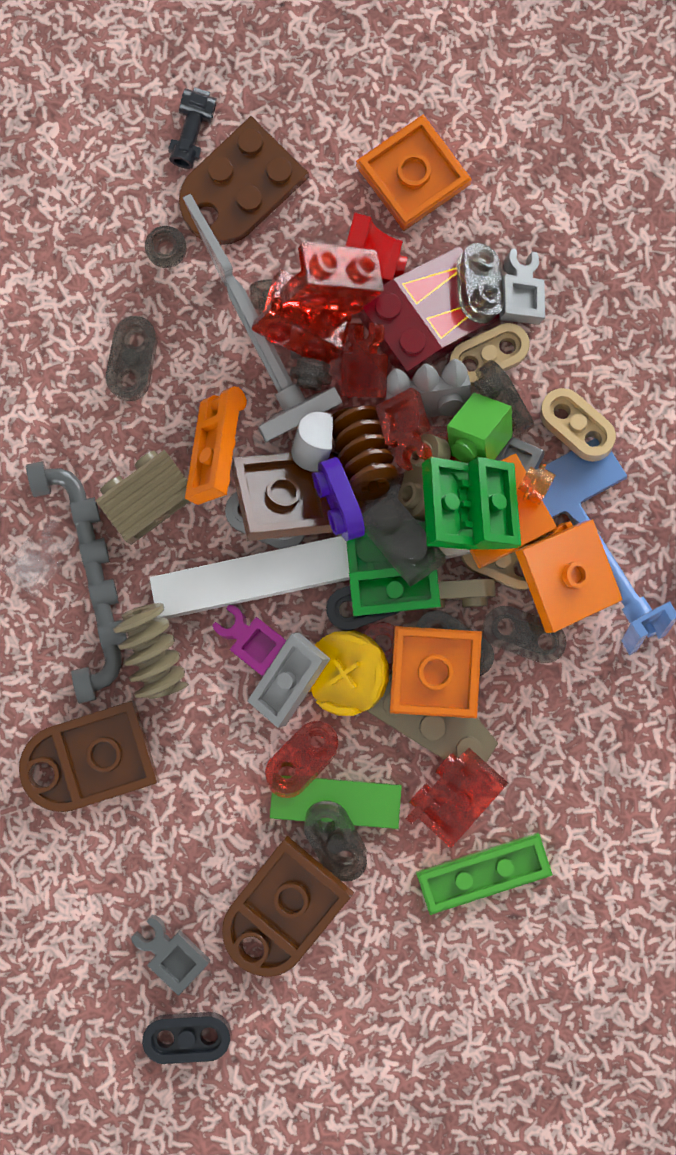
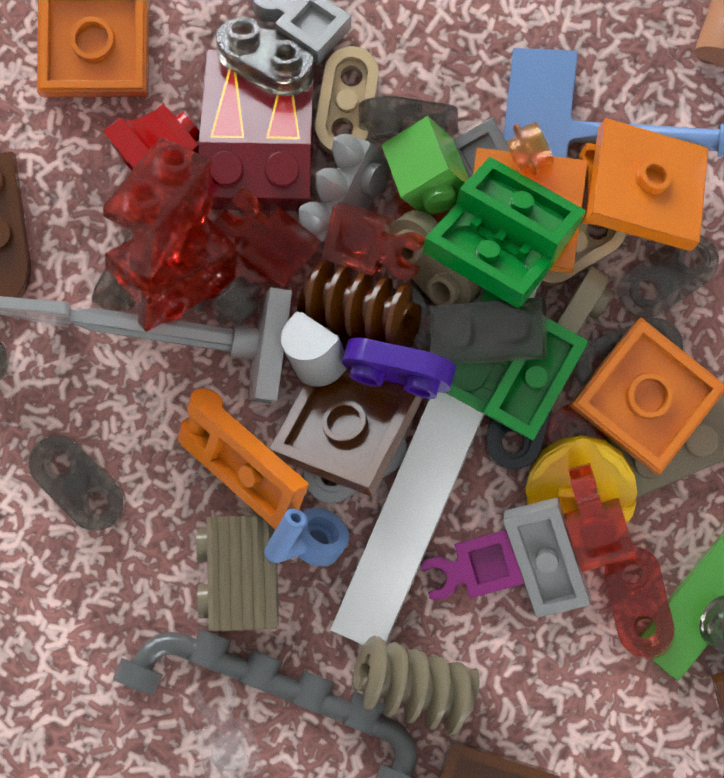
camera: 60 degrees left, 0 degrees up
(194, 516) = (312, 535): none -> medium blue plate
(327, 695) = (597, 527): none -> clear red plate
(579, 425) = (488, 58): tan plate -> none

